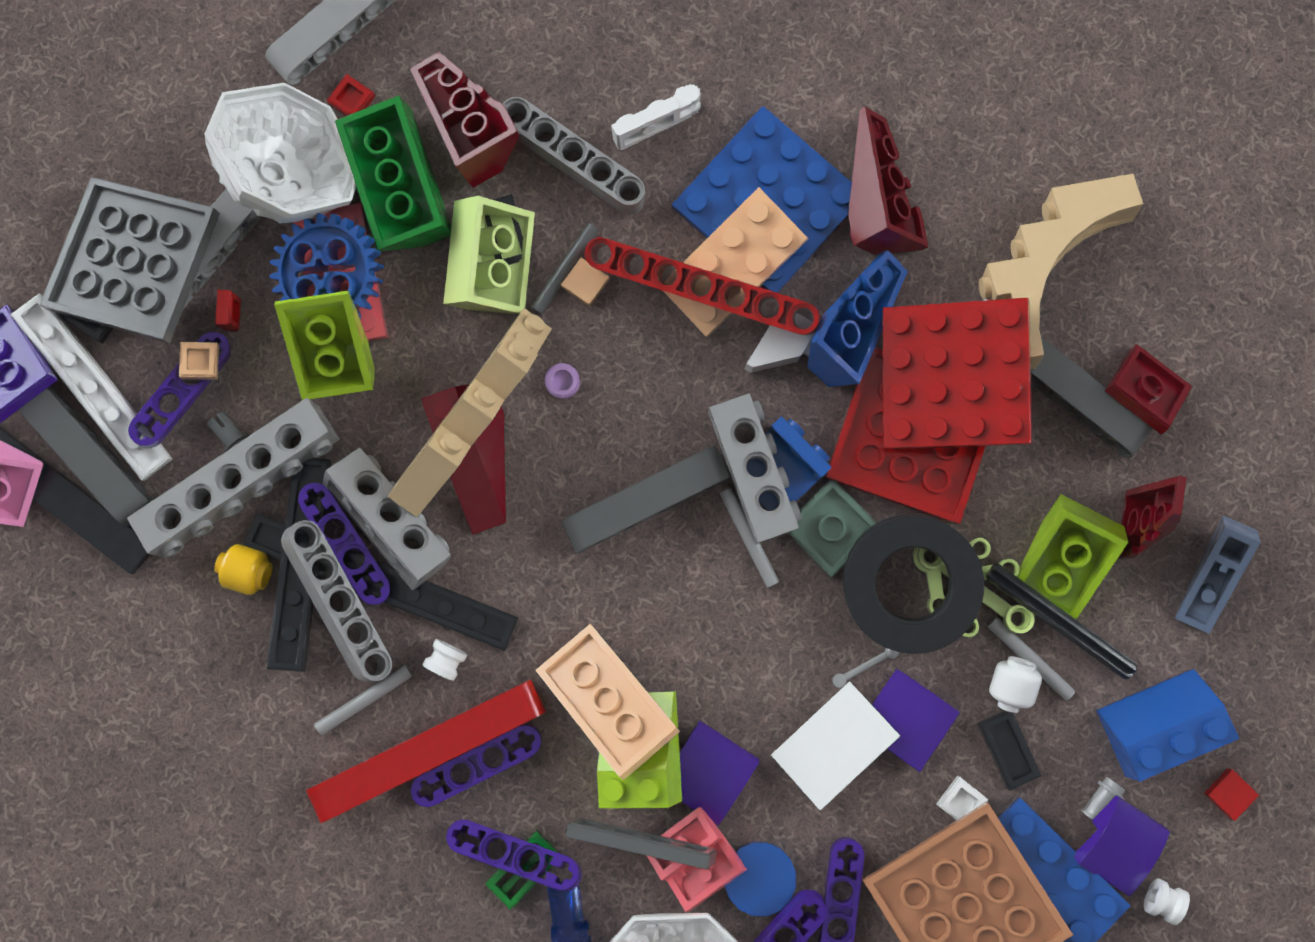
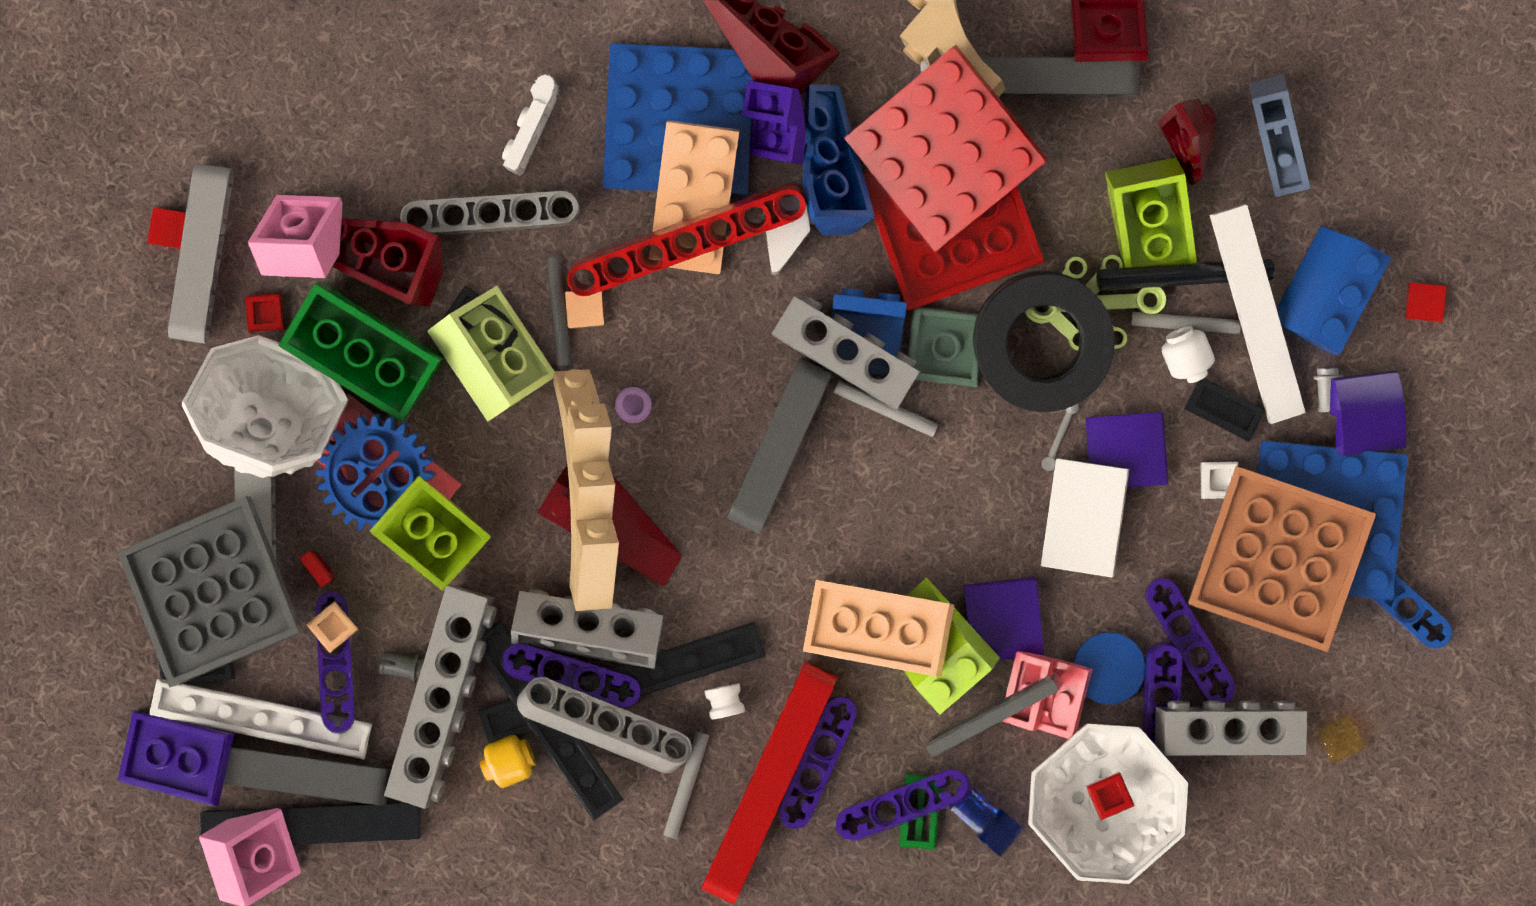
camera: 40 degrees left, 5 degrees up
(417, 58) = (298, 236): none -> bright pink slope
(843, 254) = (776, 122): none -> dark purple slope
(1095, 697) = (1257, 313): none -> white tile
(1166, 901) = (1436, 428): white wheel -> none

